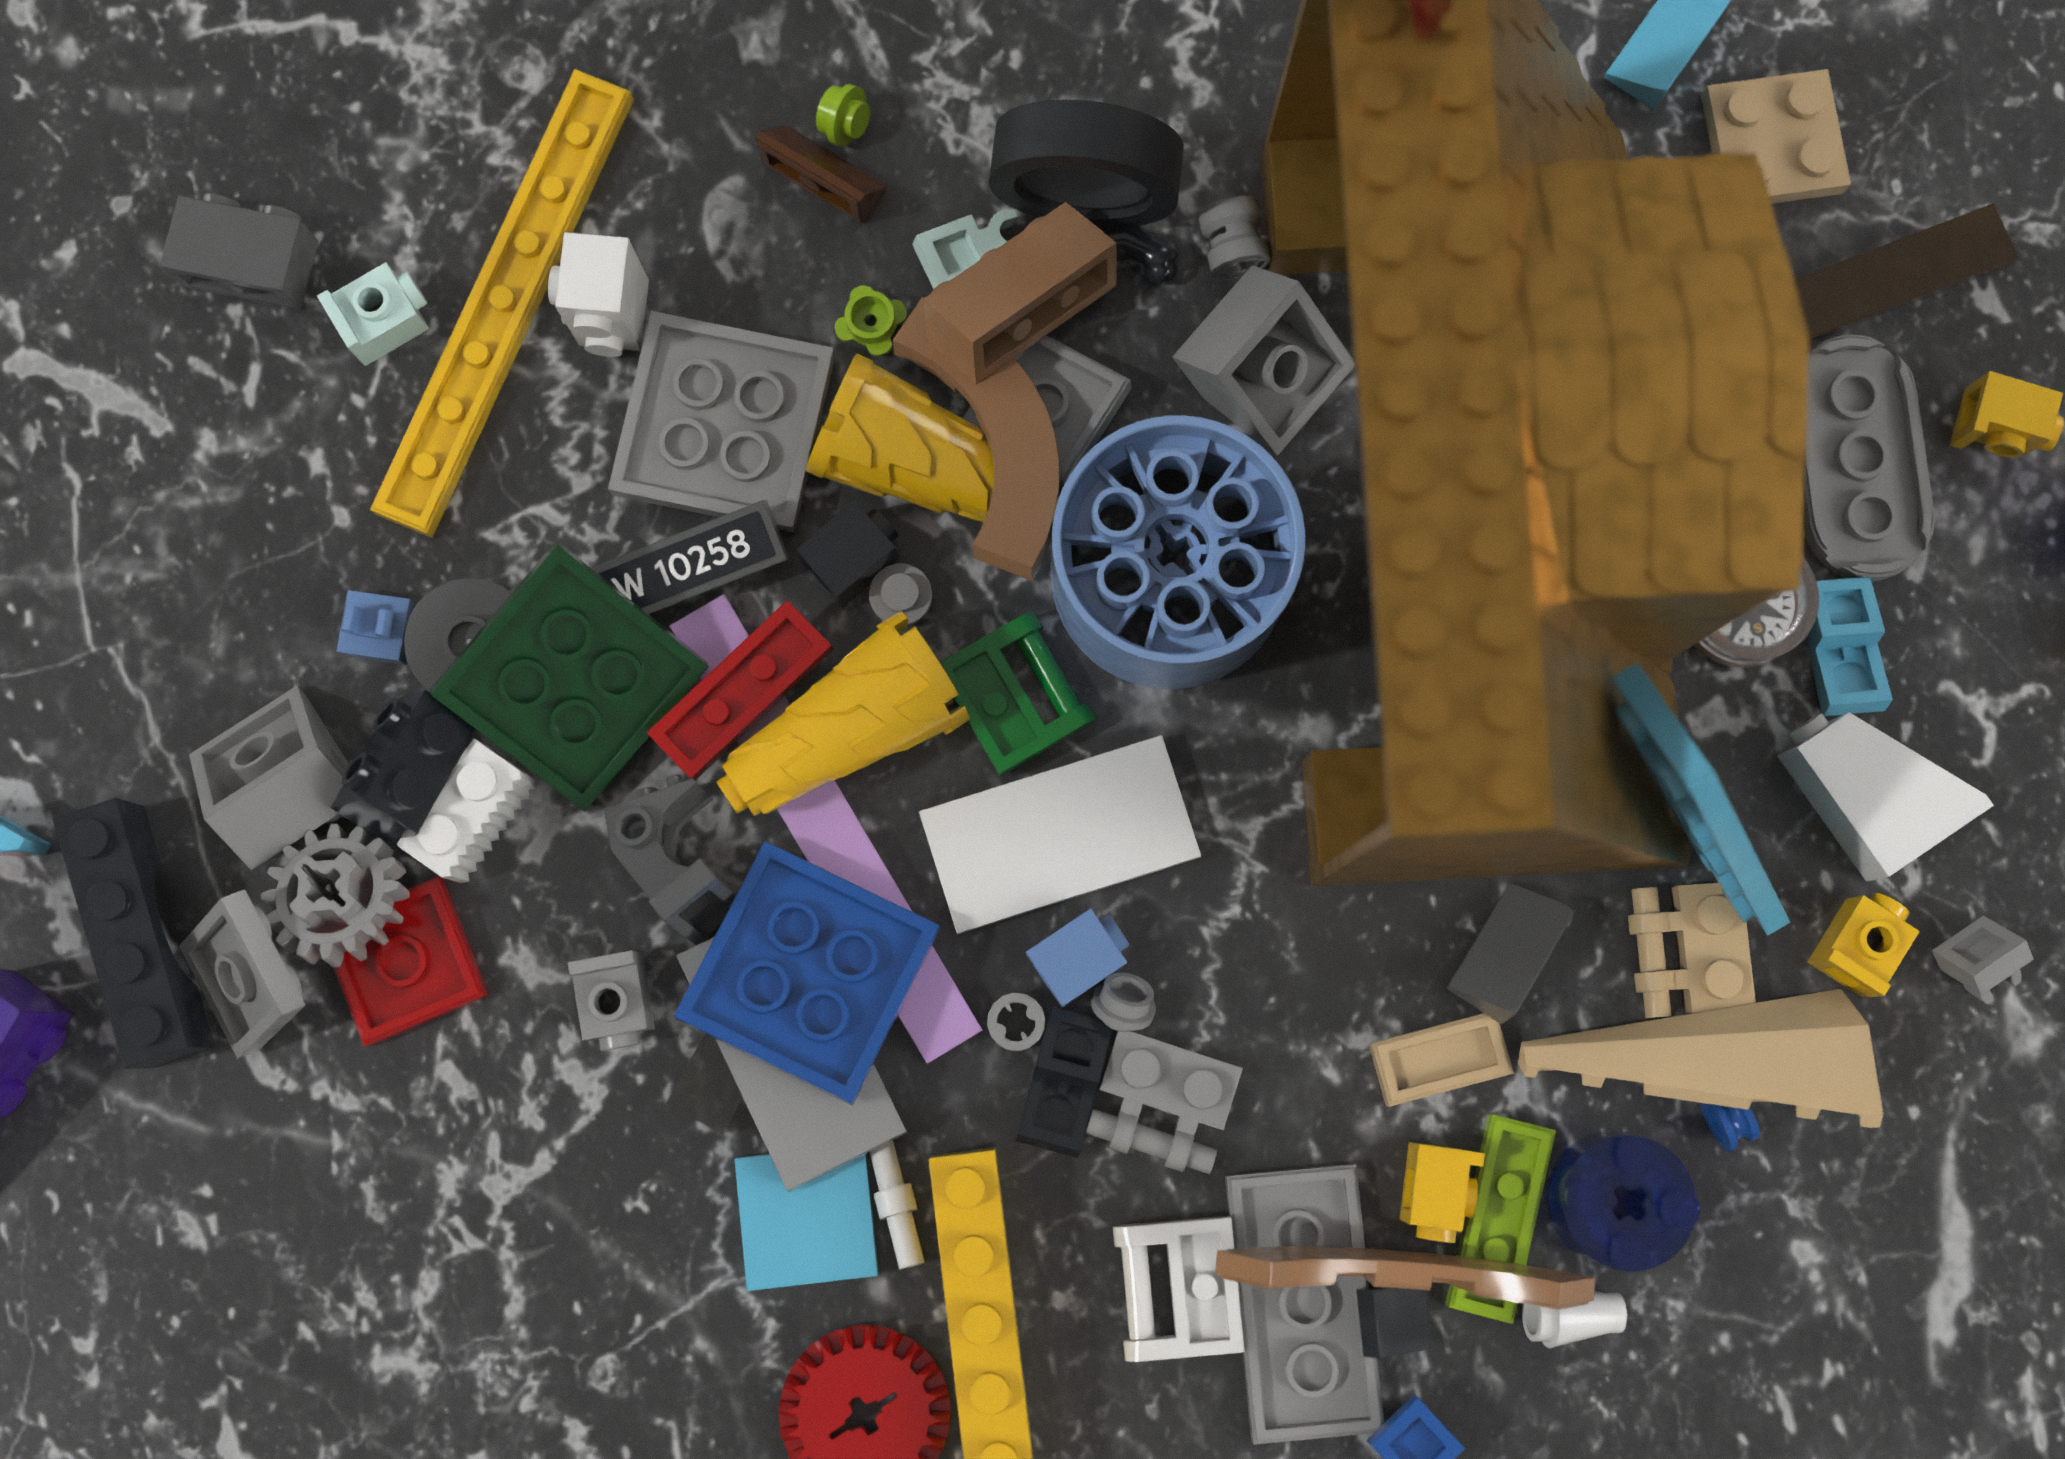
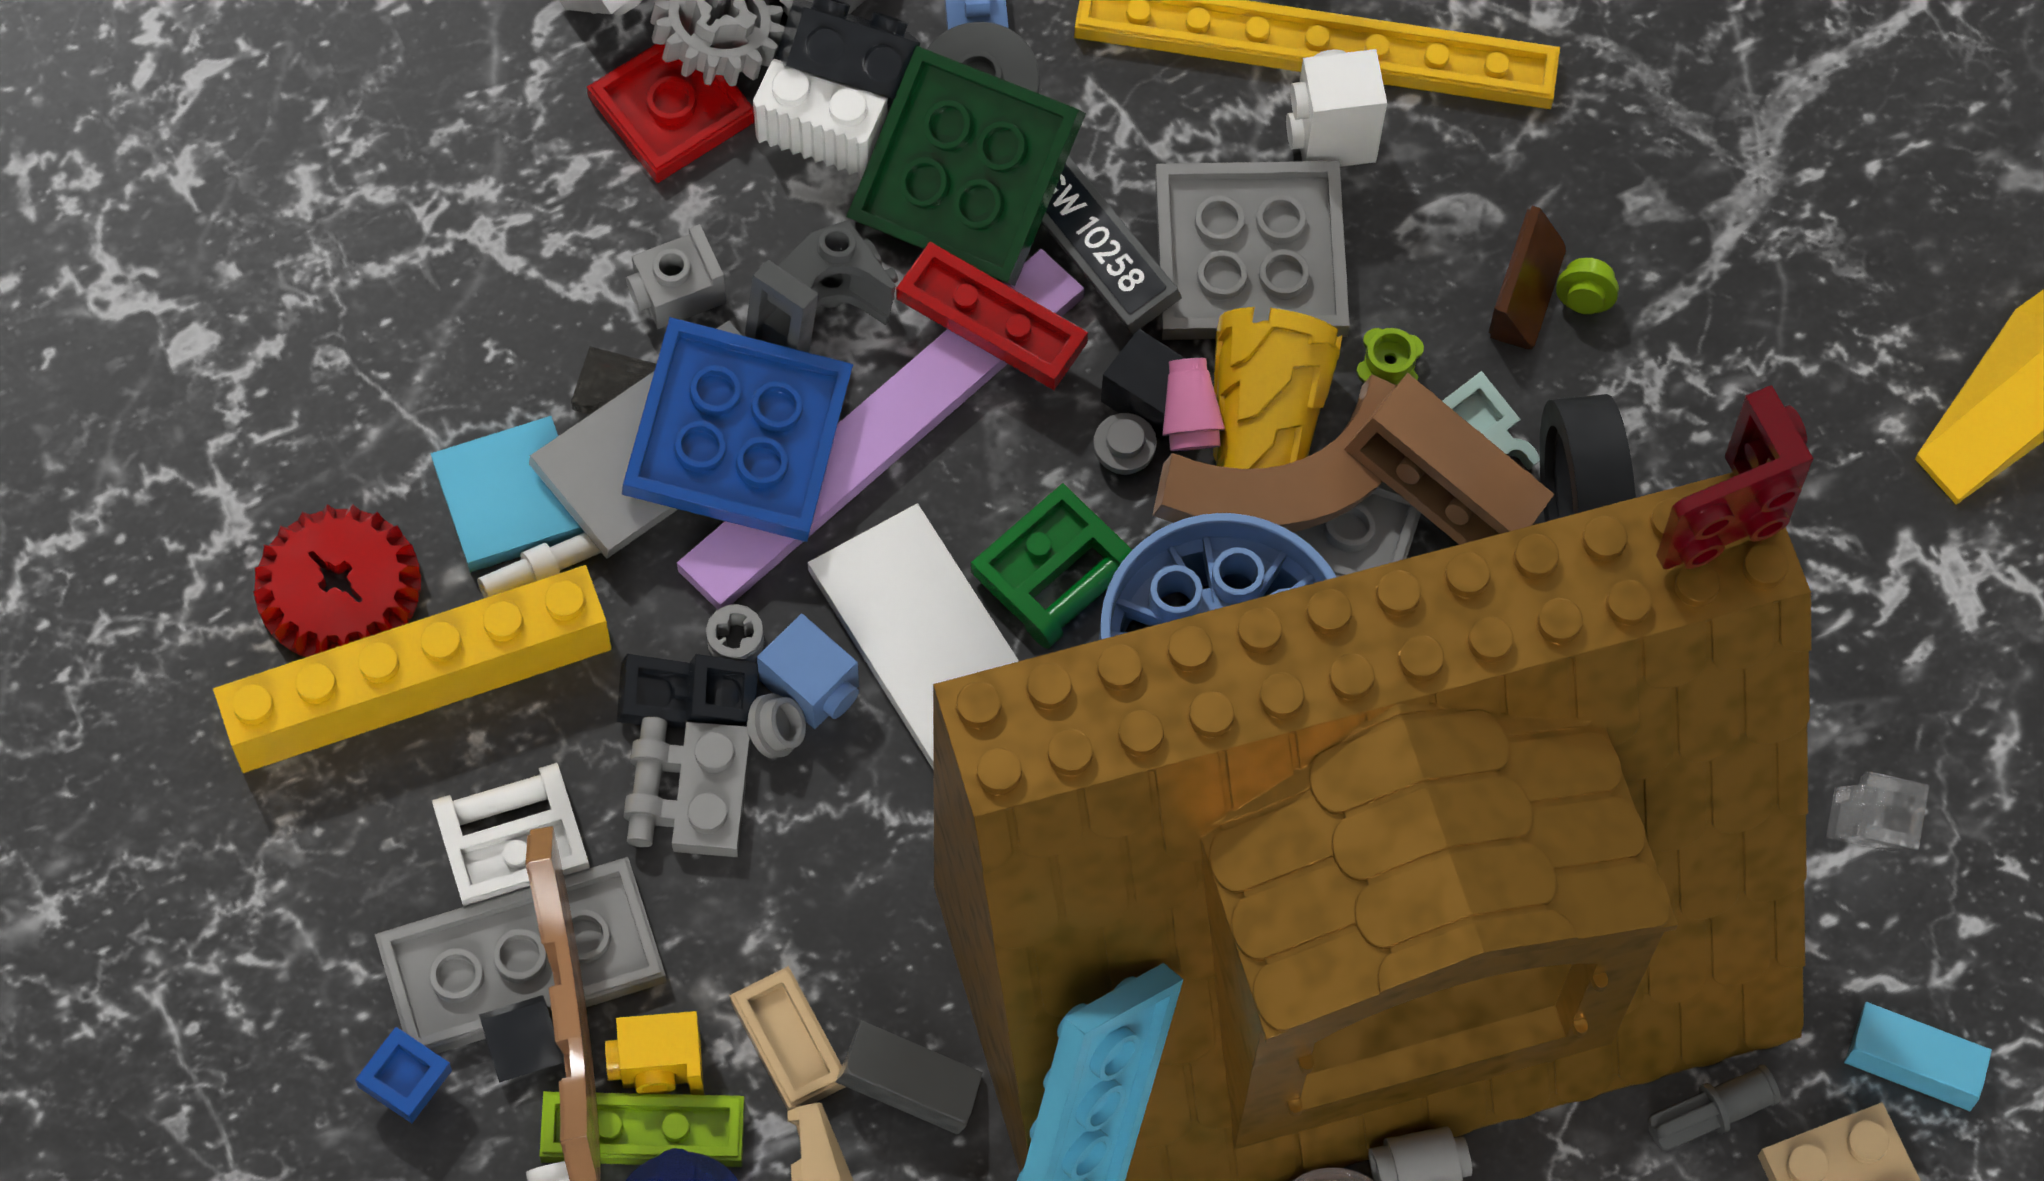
camera: 75 degrees right, 15 degrees down
(868, 707) = (1003, 424): yellow cone -> none
(901, 517) = (1191, 407): none -> bright pink cone

